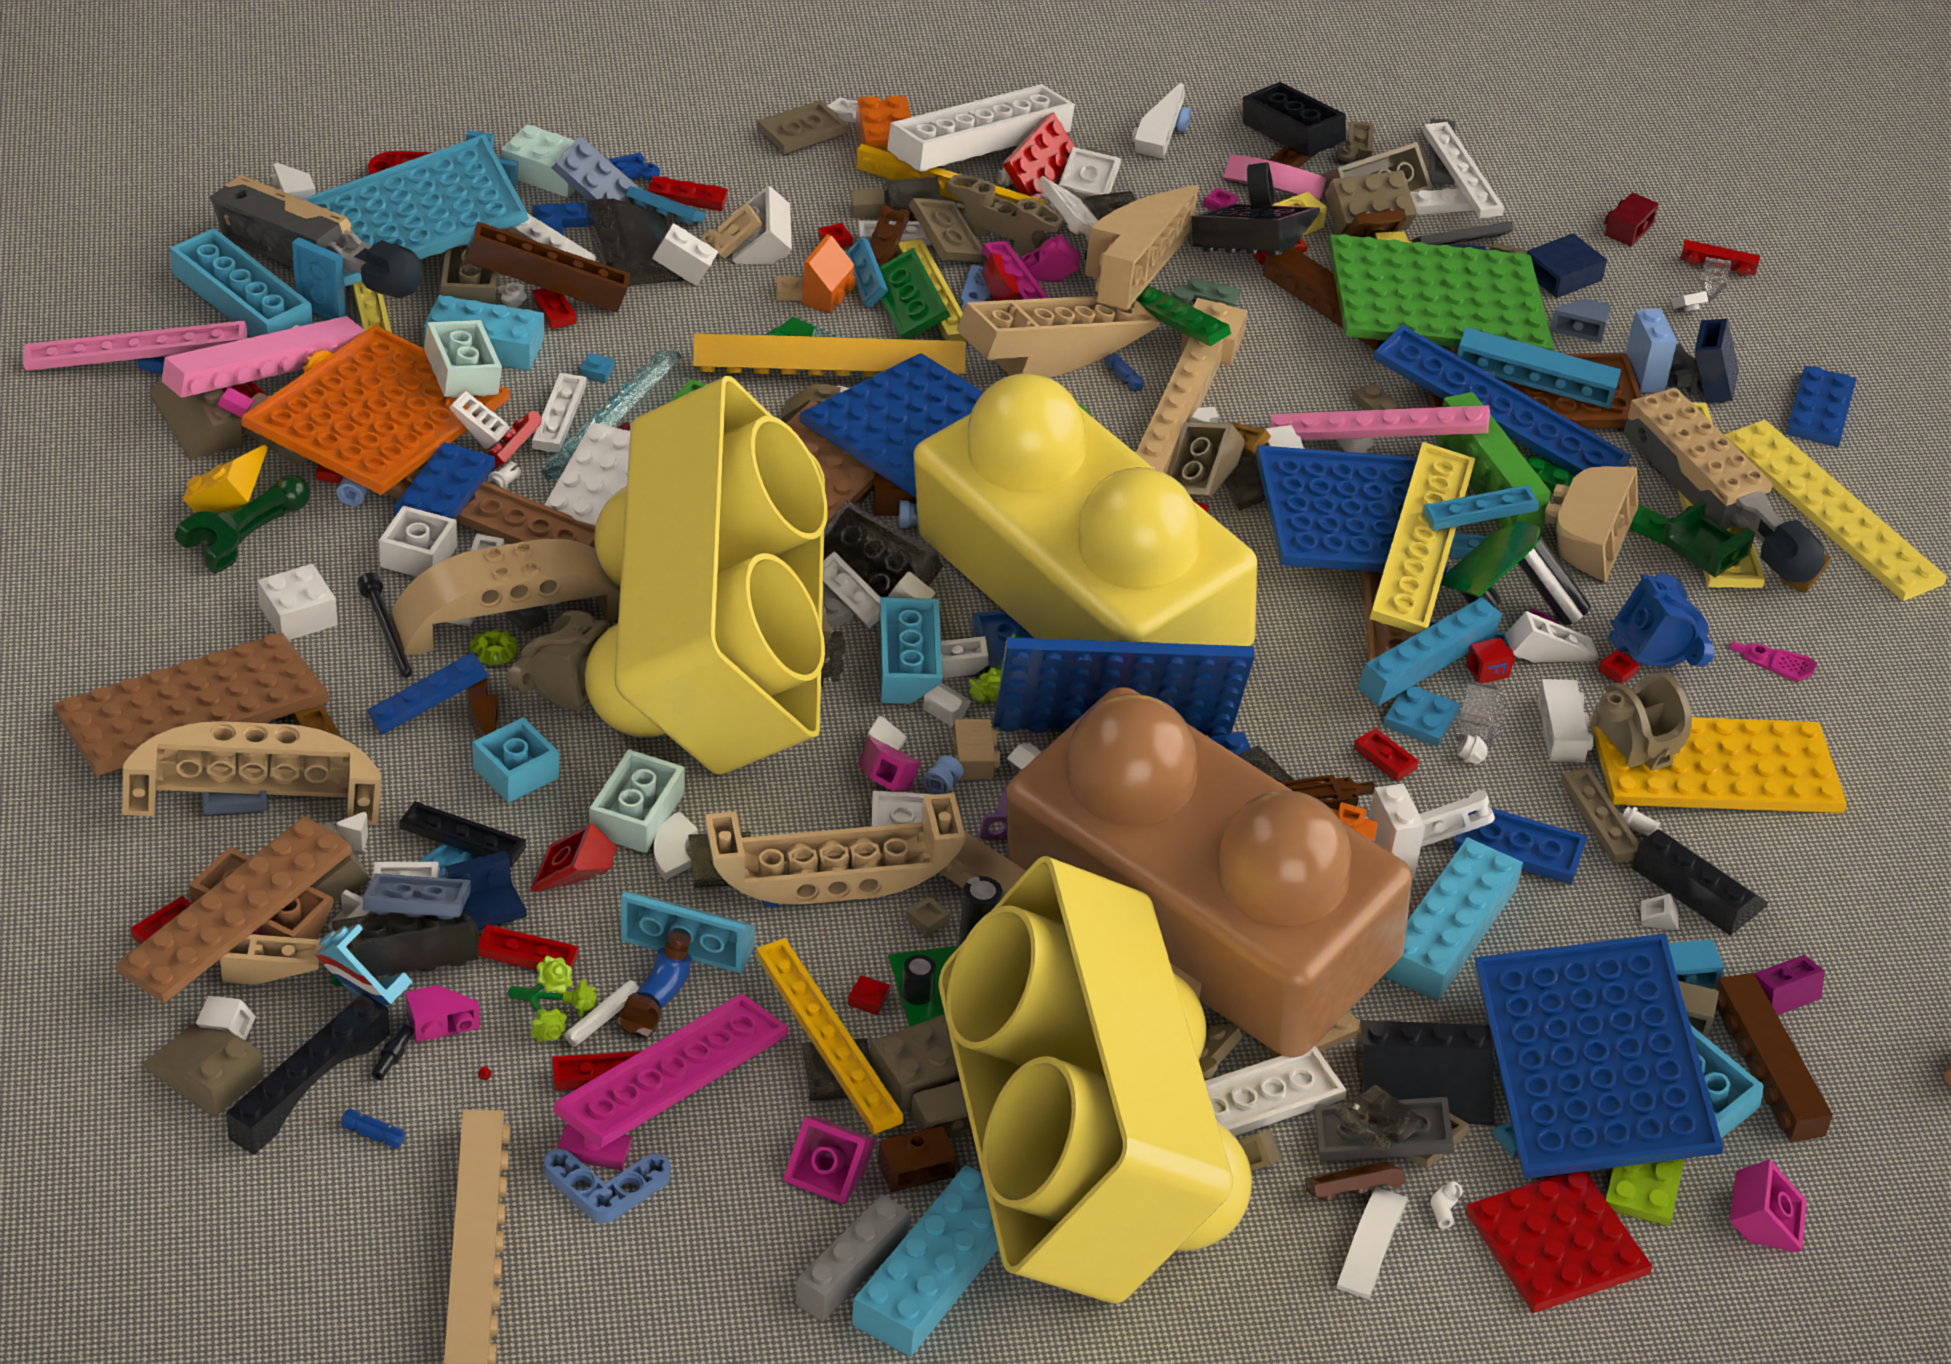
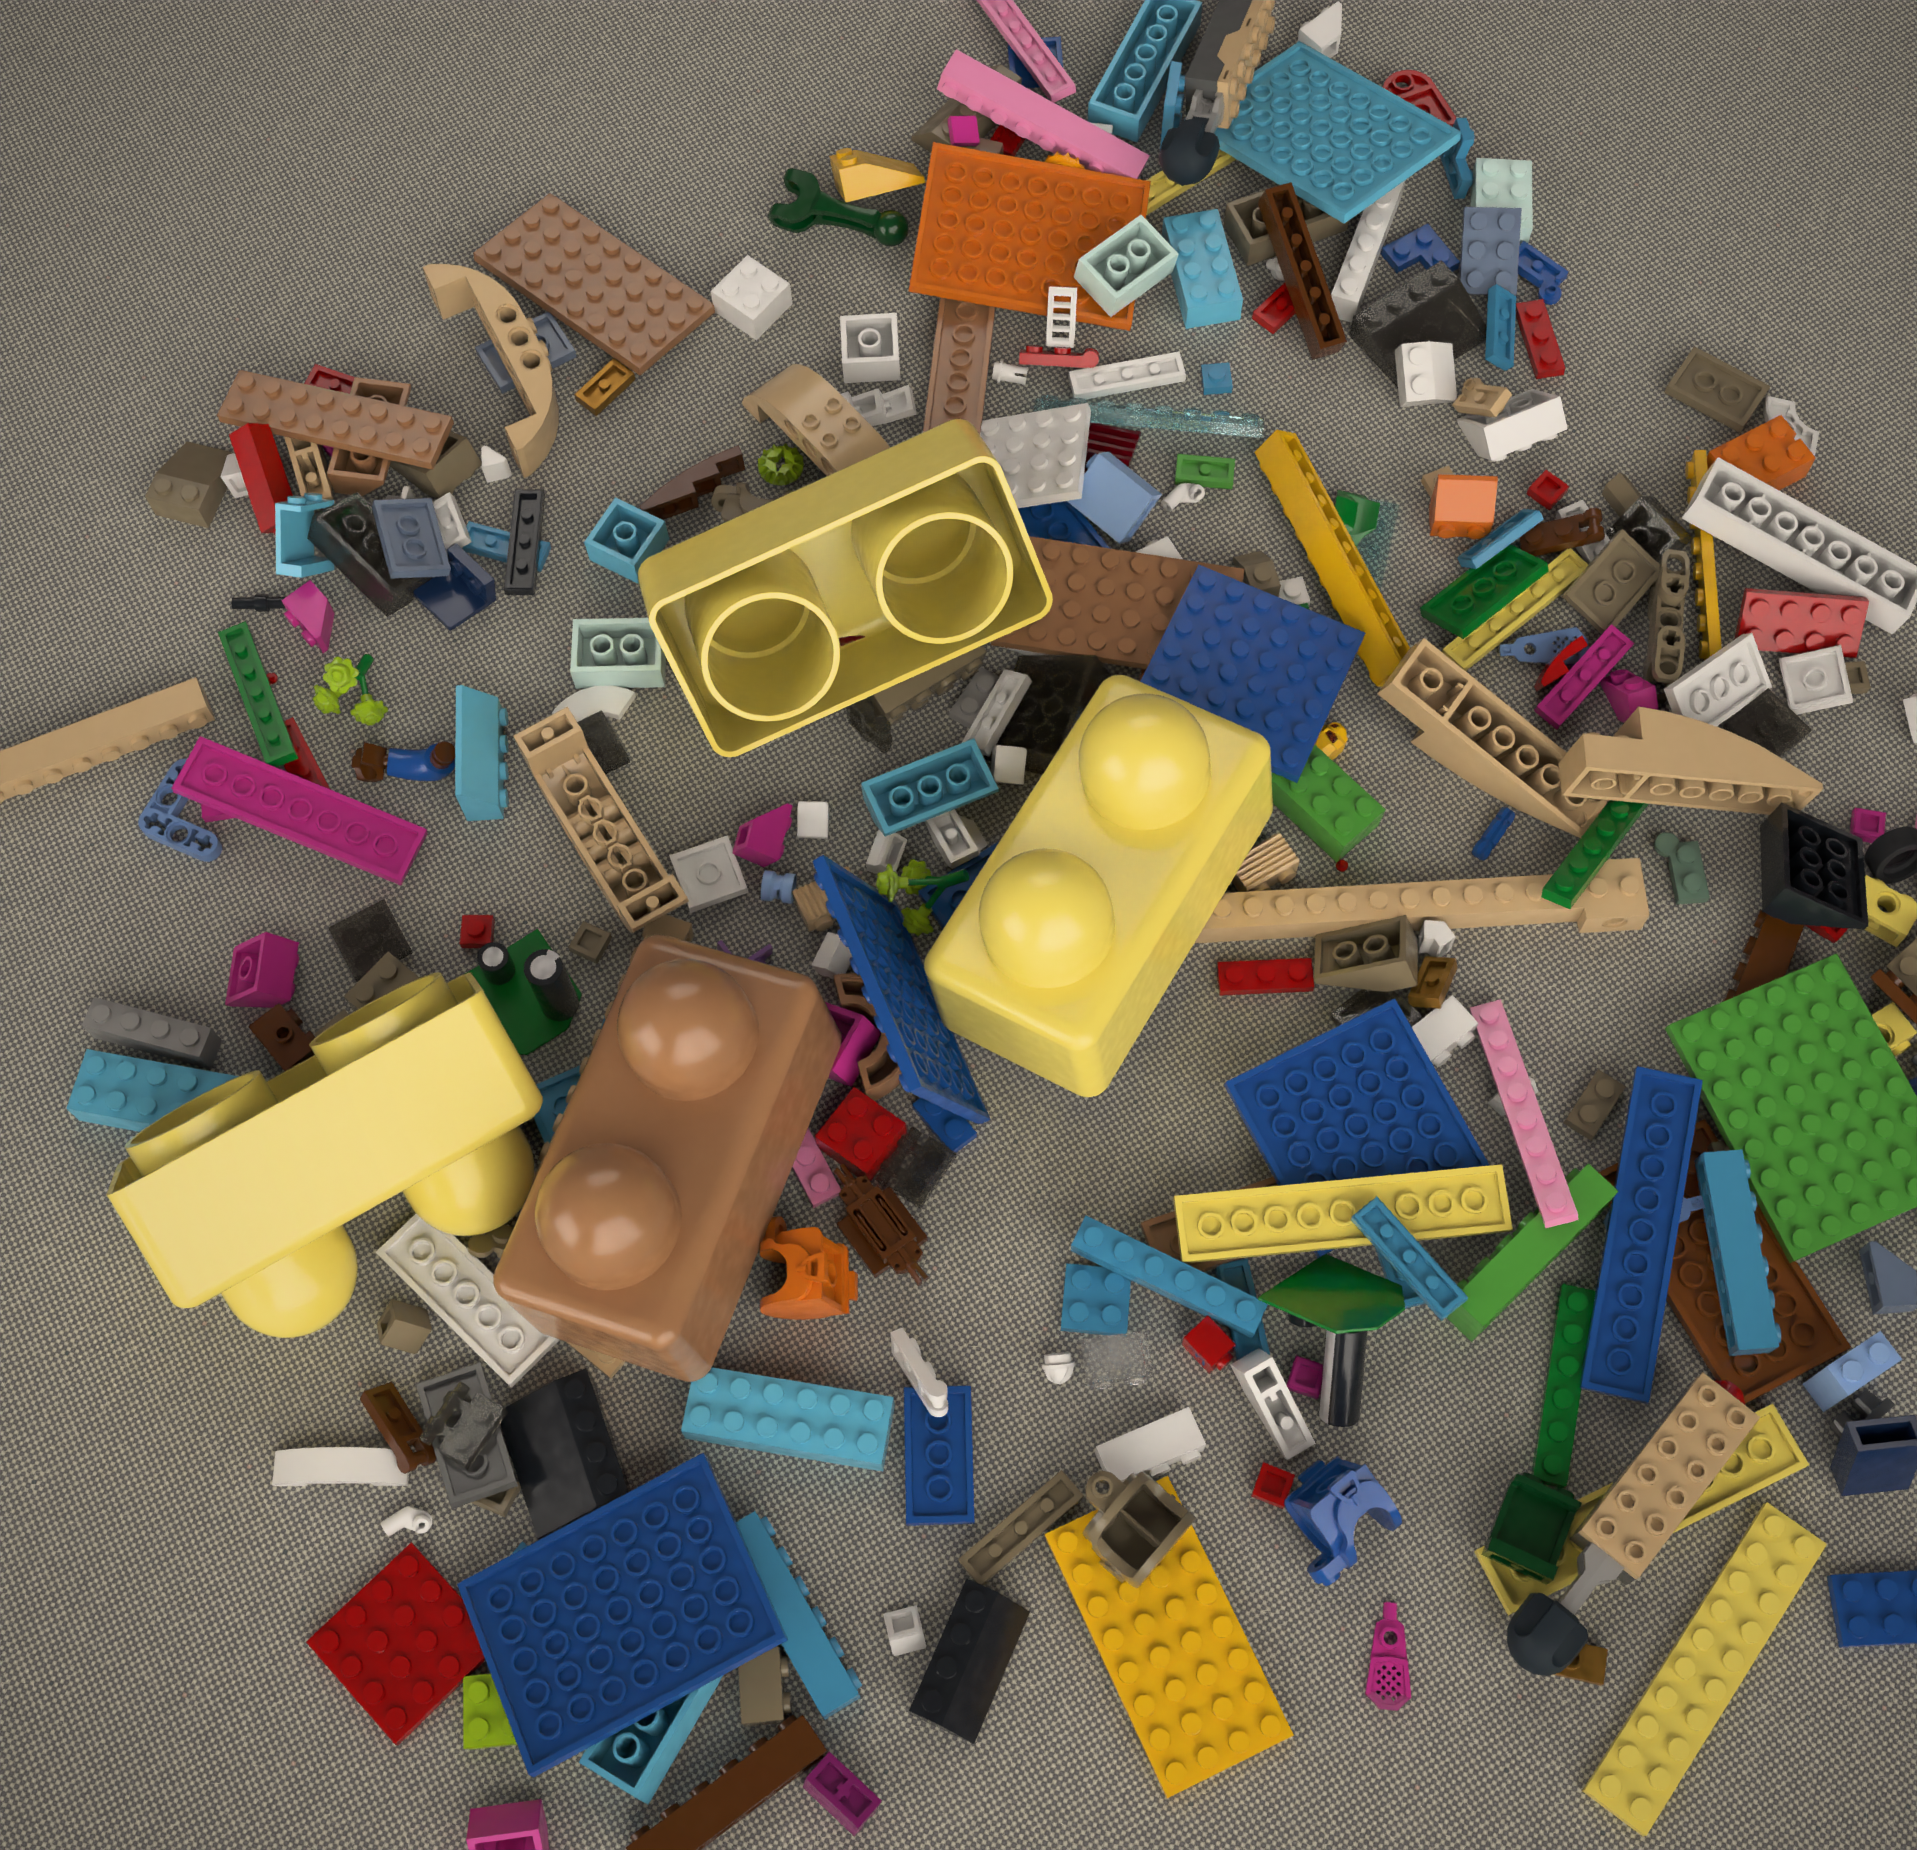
camera: 75 degrees right, 25 degrees up
(262, 988) = (261, 471): none -> red brick
(265, 1108) = (159, 543): black arch -> none
(371, 588) = (806, 341): black piece -> none
(373, 1128) = (176, 625): blue axle -> none
(427, 693) = (679, 440): blue plate -> none
(447, 481) = (958, 333): blue plate -> none
(510, 1071) = (257, 695): none -> green plate
(523, 948) = (413, 648): red plate -> none
(575, 859) = (529, 638): red slope -> none
(600, 1014) = (365, 733): white axle -> none
(829, 1036) = (388, 915): yellow plate -> none
(1386, 754) = (1009, 1282): red plate -> none
(1399, 823) = (866, 1322): white brick -> none
(1594, 517) = (1490, 1389): tan hips -> none
(1640, 822) = (1029, 1573): white pin -> none

